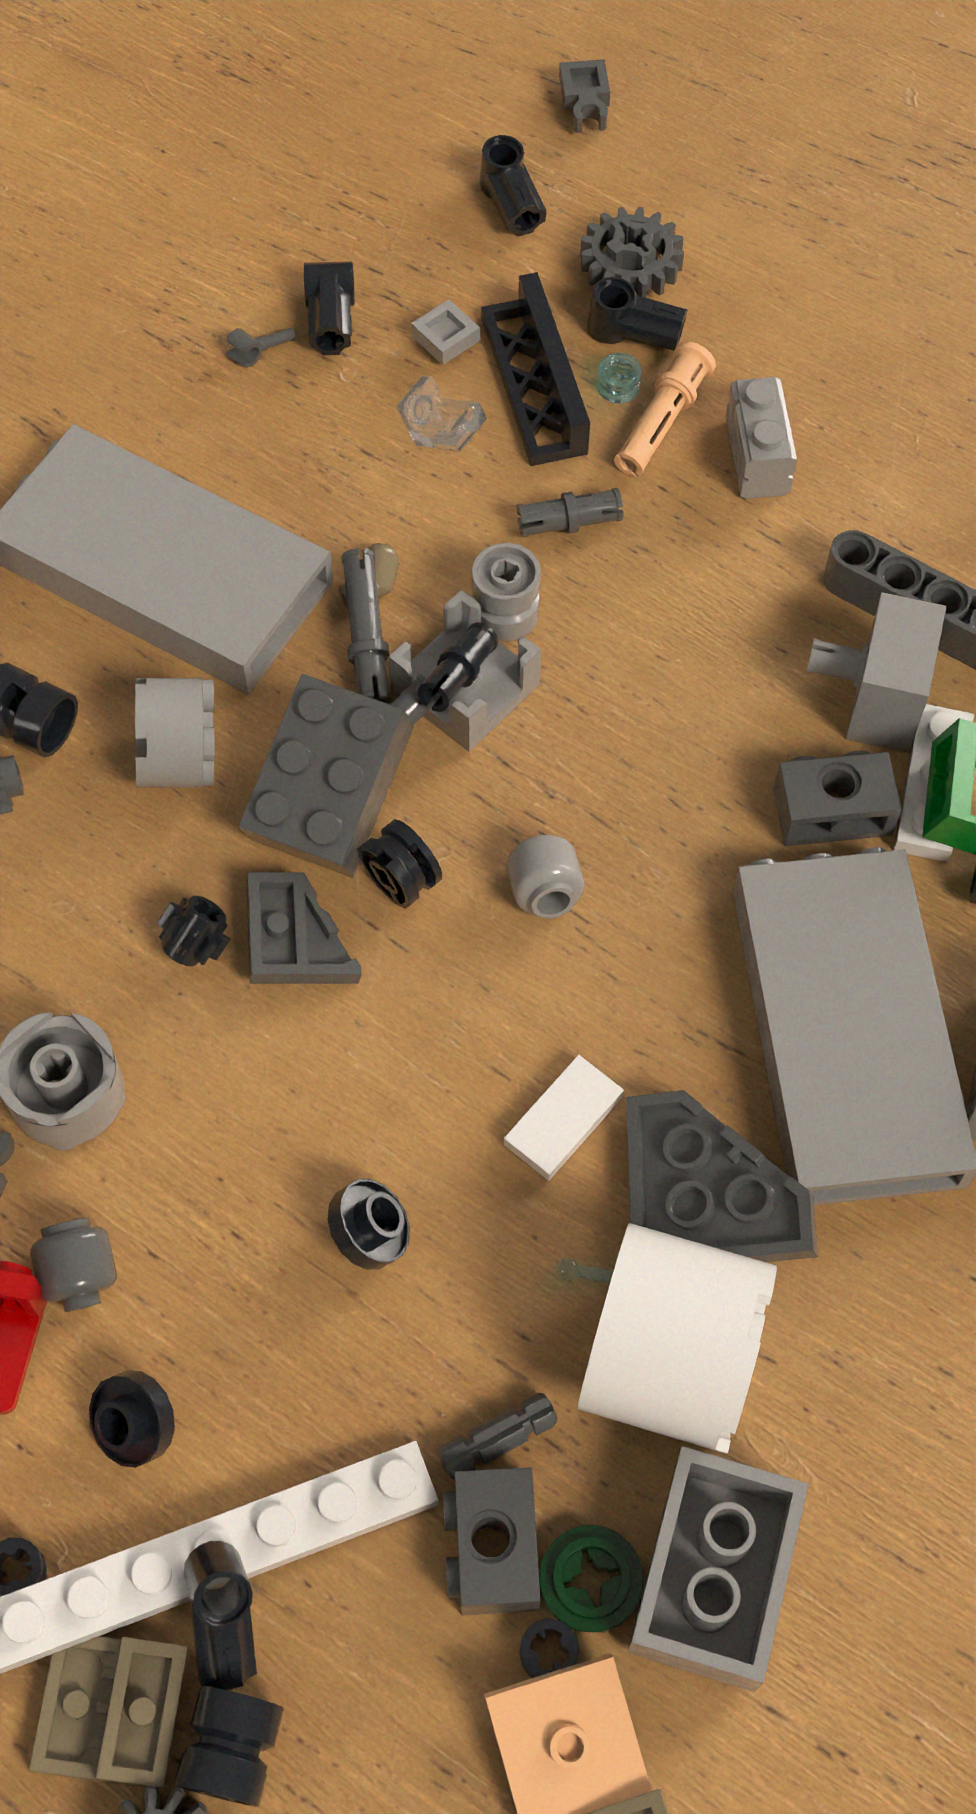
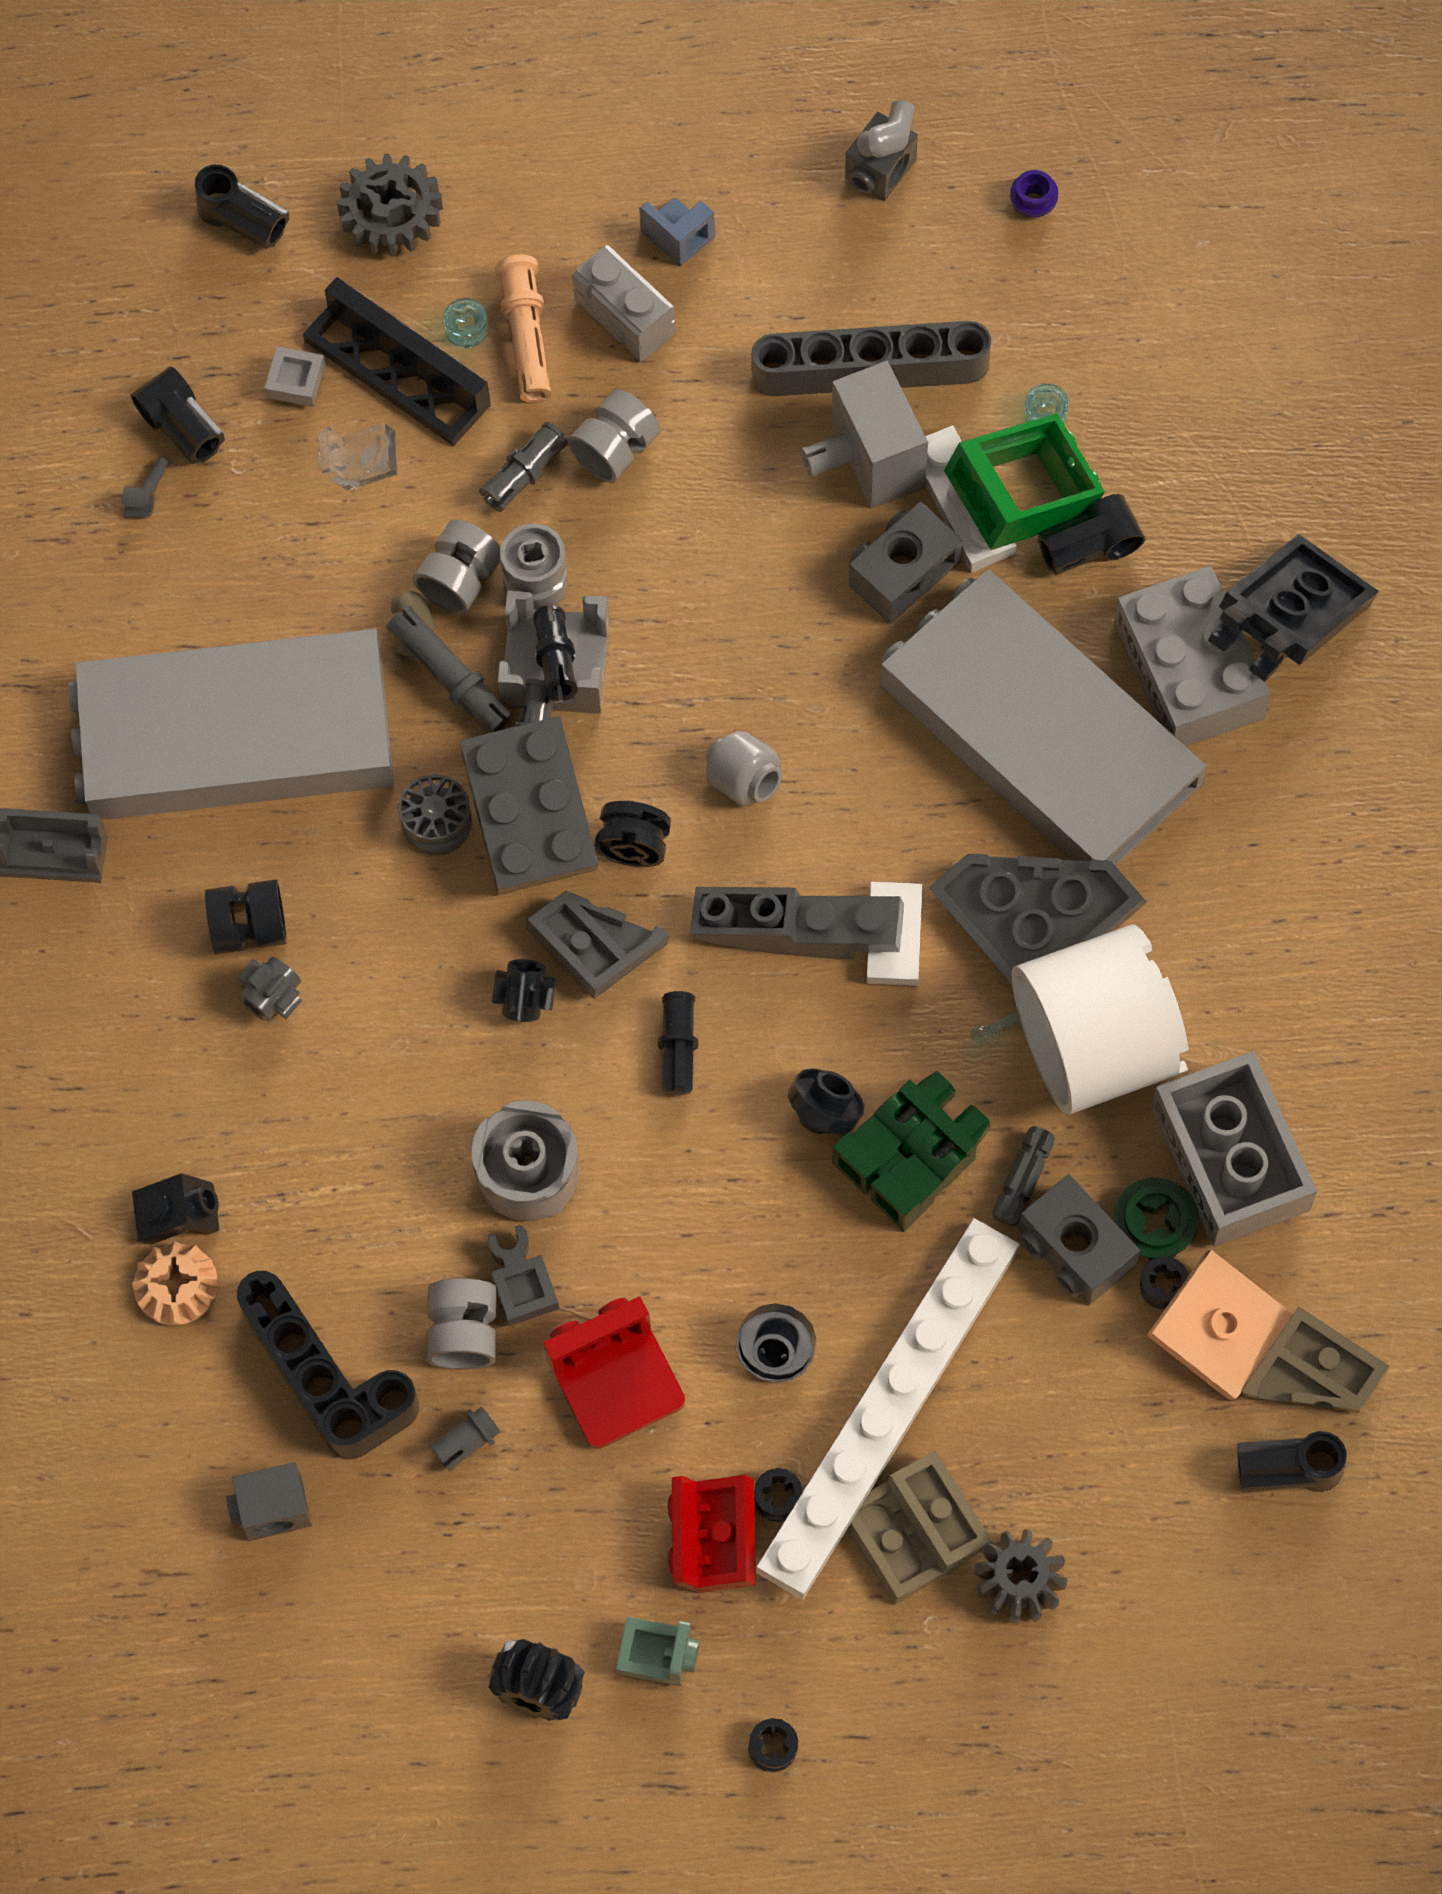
camera: 35 degrees left, 5 degrees up
(73, 1263) = (647, 1272): dark grey head -> none
(174, 732) = (381, 854): light grey brick -> none
(220, 1616) = (944, 1411): black piece -> none
(231, 1736) = (1012, 1481): black wheel -> none
(247, 733) = (435, 816): none -> dark grey wheel
(287, 1075) = (678, 1043): none -> black axle
(432, 1343) = (904, 1149): none -> dark green hips
(442, 551) = (455, 572): none -> light grey wheel
(479, 1044) = (797, 925): none -> dark grey slope
(585, 91) = (225, 71): dark grey plate -> none
(622, 314) = (440, 260): black piece -> none
(664, 533) = (608, 442): none -> light grey wheel
(858, 415) = (678, 229): none -> sand blue panel

